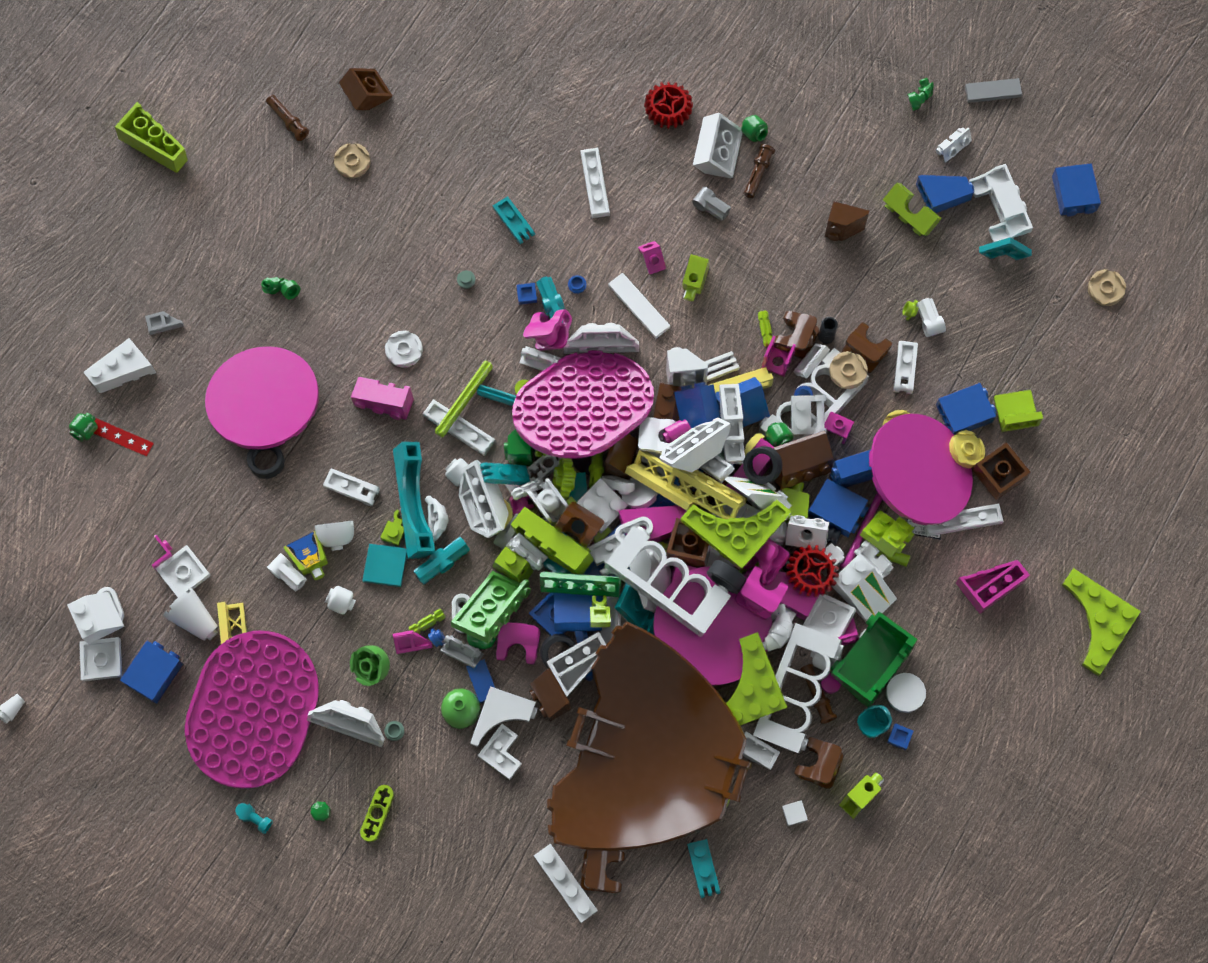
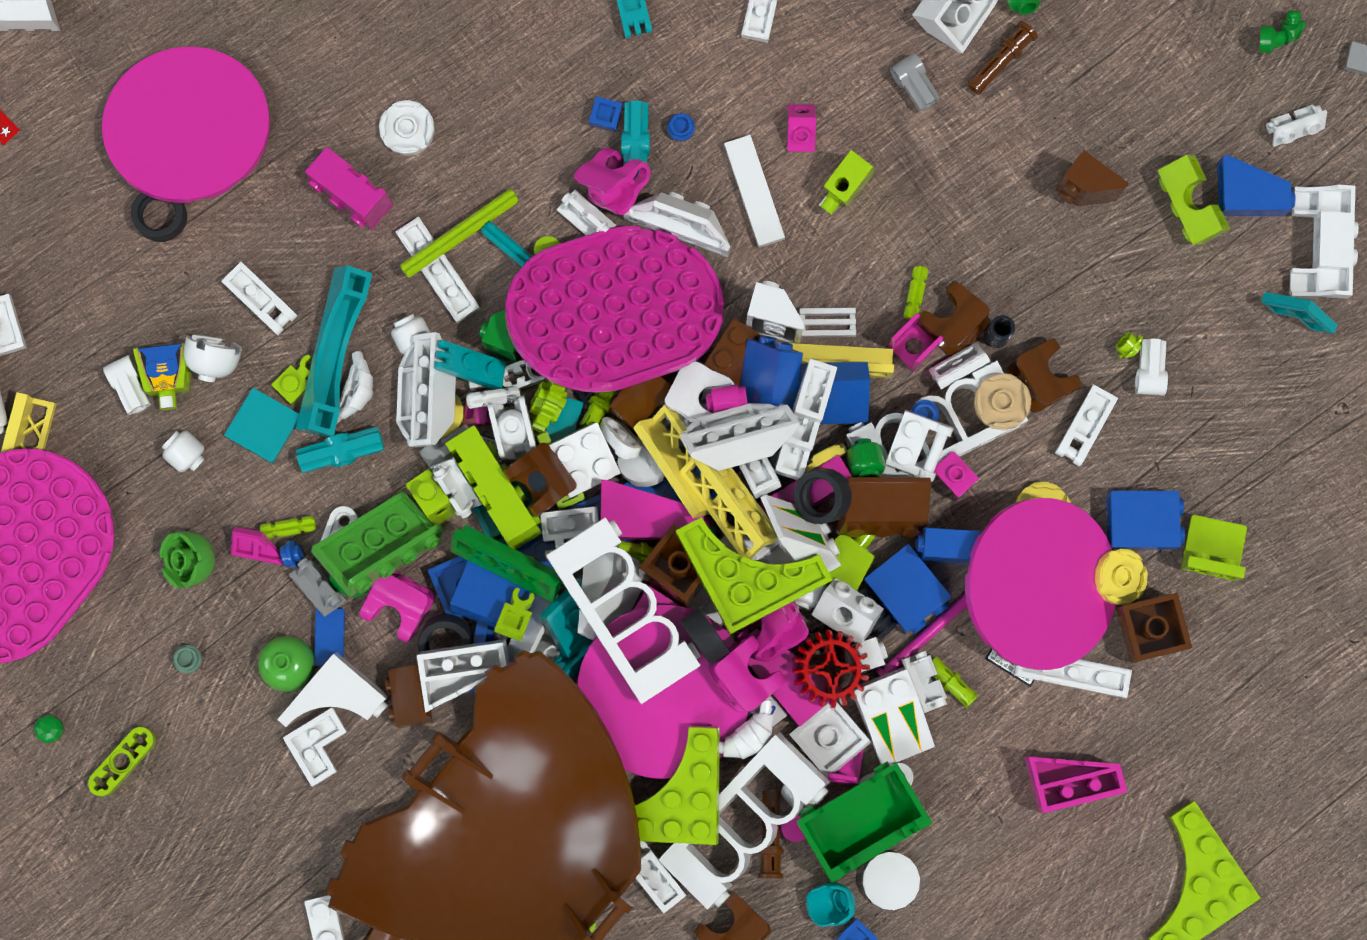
camera: 20 degrees right, 10 degrees up
(348, 721) = (130, 623): white wedge -> none
(466, 279) = (530, 60): sand green plate -> none
(625, 528) = (611, 511): white plate -> none
(888, 534) = (959, 653): lime plate -> none

